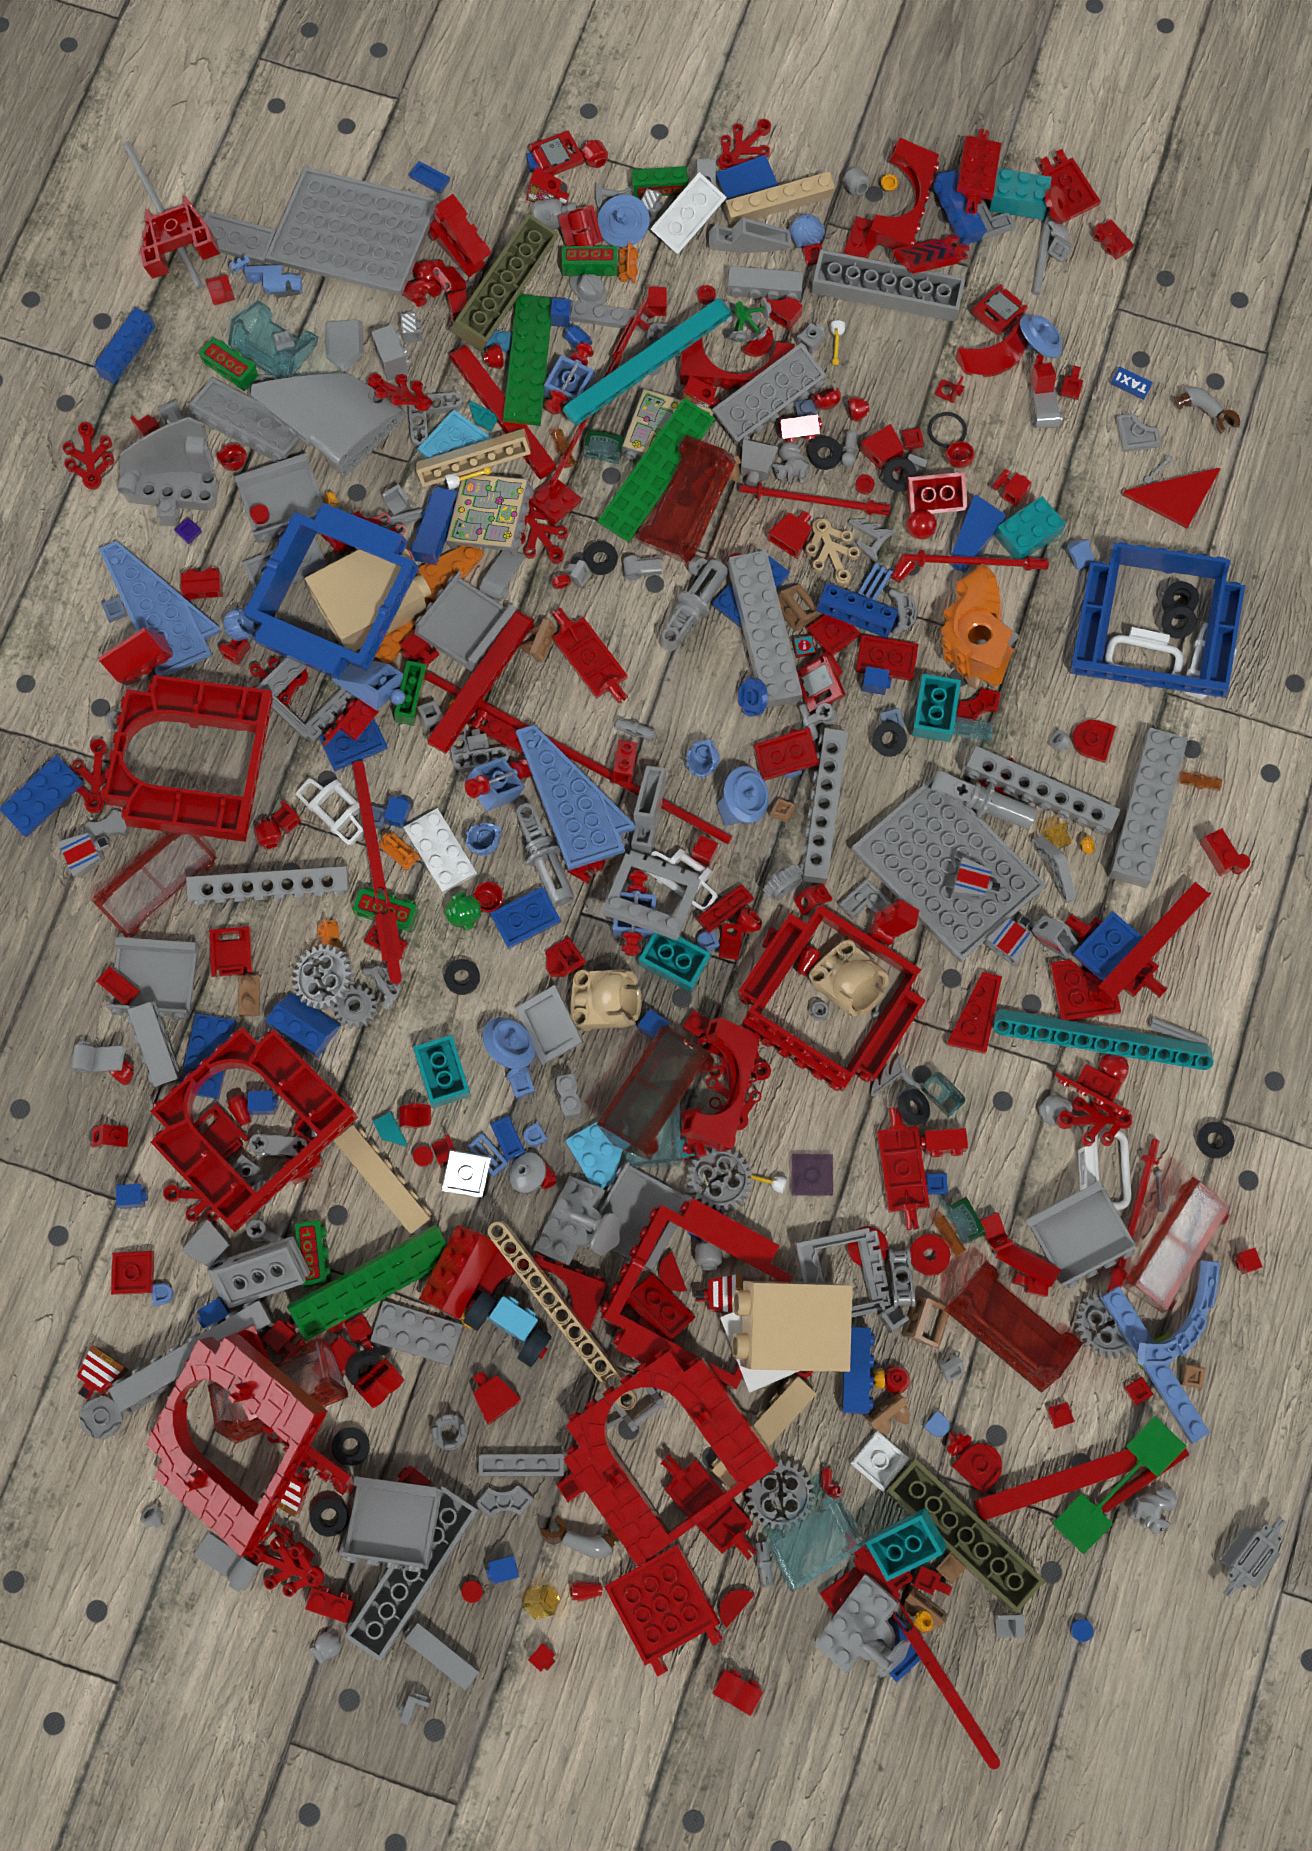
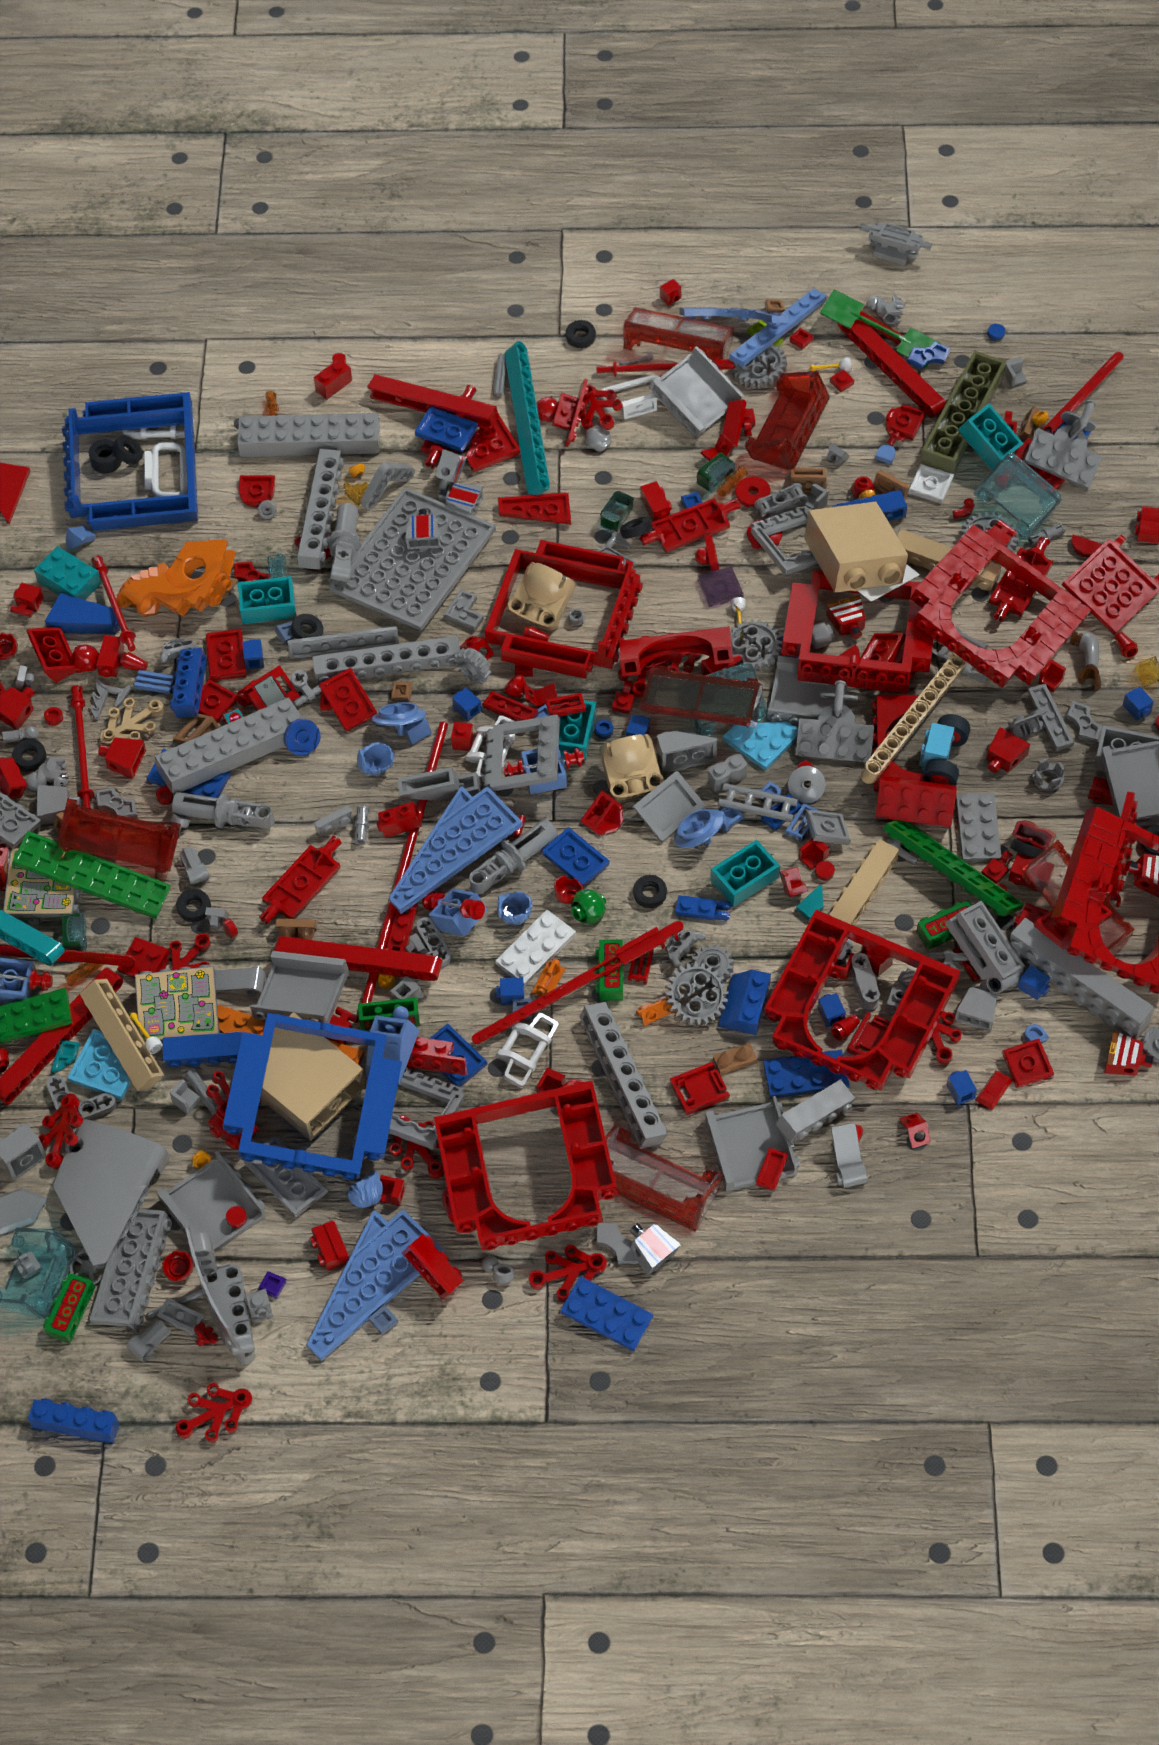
camera: 105 degrees left, 15 degrees down
(120, 1230) = (993, 1090): none -> red tile
(145, 425) = (164, 1367): red panel -> none
(425, 1019) = (702, 908): none -> blue hinge
(519, 1431) = (1029, 724): none -> light grey hinge
(522, 1127) = (750, 794): none -> light grey bar
(608, 1054) = (684, 750): none -> light grey slope
(645, 697) = (333, 821): none -> light grey plate
(670, 995) = (604, 729): none -> blue tile
(694, 970) = (565, 708): none -> red tile
(734, 522) = (110, 800): none -> light grey tile
(744, 867) = (466, 704): none -> blue brick
(761, 1494) = (1002, 533): none -> red brick
(855, 1175) = (708, 555): none -> red tile
(860, 769) = (342, 642): none -> light grey tile
(891, 466) = (44, 680): black tyre -> none
(893, 922) = (479, 577): red hinge -> none
(911, 543) = (110, 656): none -> red brick
(1064, 1519) = (922, 356): none -> tile
(1081, 1425) = (844, 364): none -> hinge

